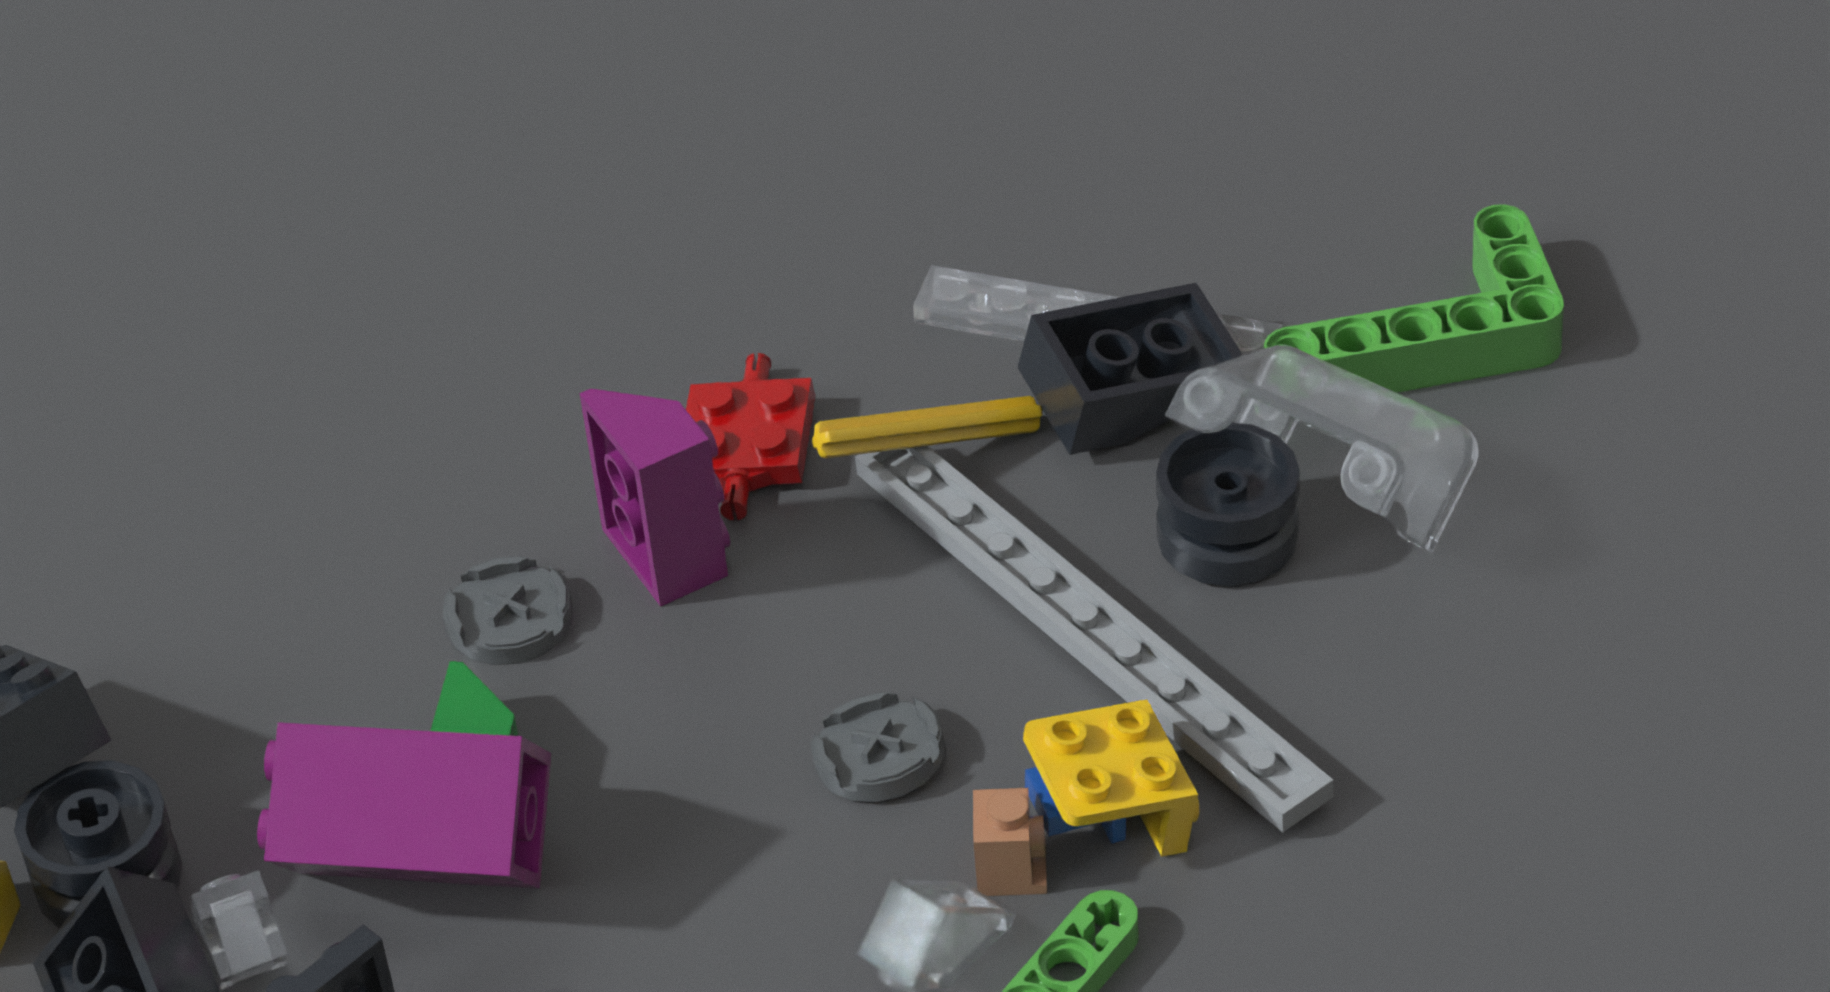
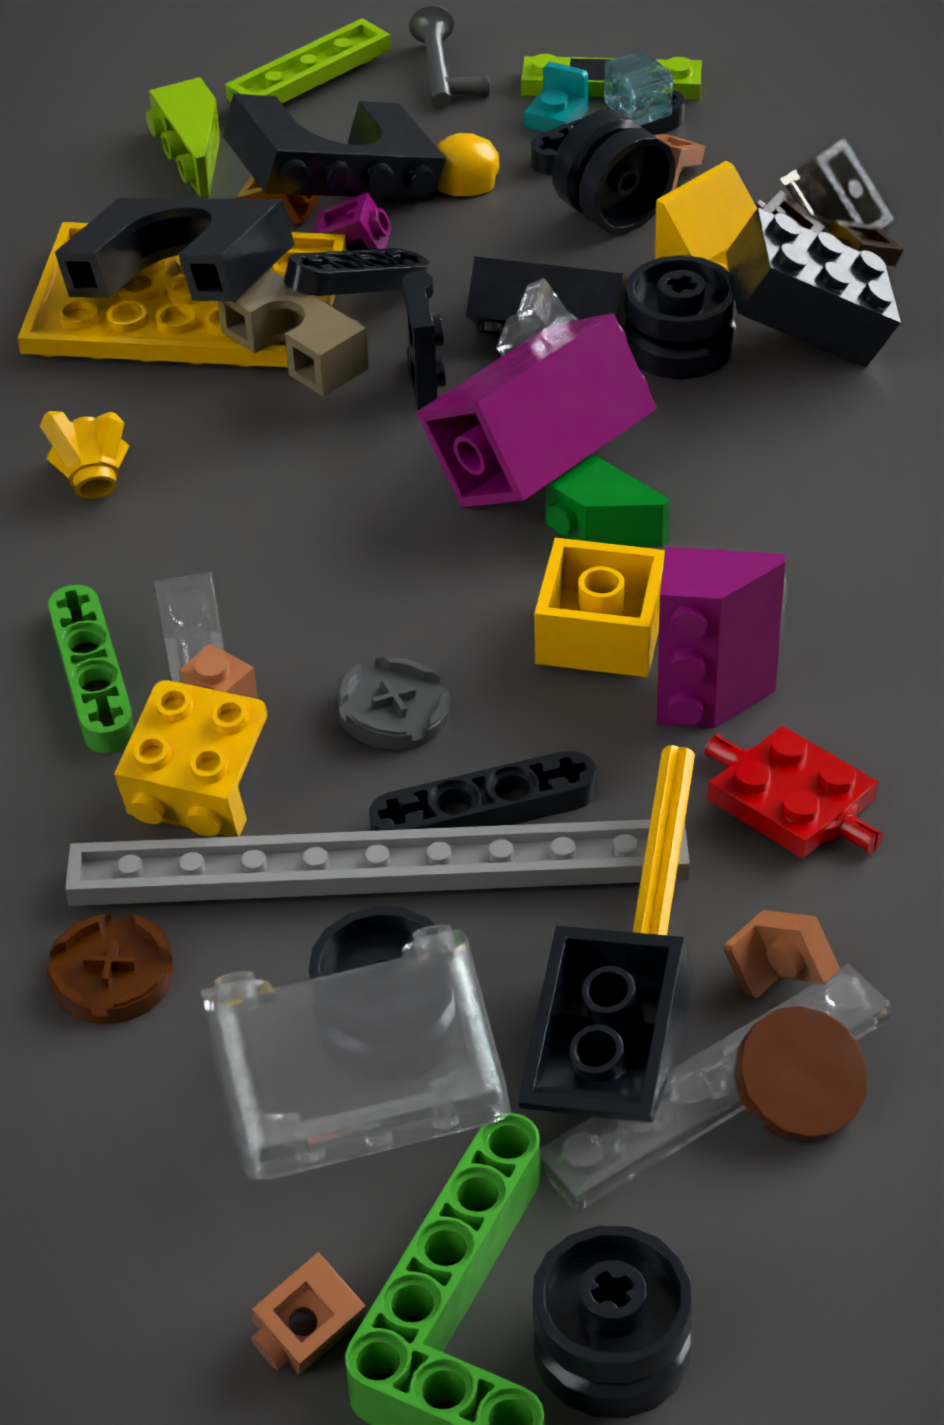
camera: 125 degrees right, 0 degrees up
(644, 637) = (599, 607): none -> yellow brick
(943, 317) = (780, 947): none -> nougat bracket
(948, 602) = (480, 793): none -> black beam
(1069, 260) = (801, 1073): none -> reddish brown tile
(1363, 726) = (110, 968): none -> reddish brown tile
(1370, 235) = (612, 1321): none -> black wheel
(1537, 382) = (312, 1291): none -> nougat brick

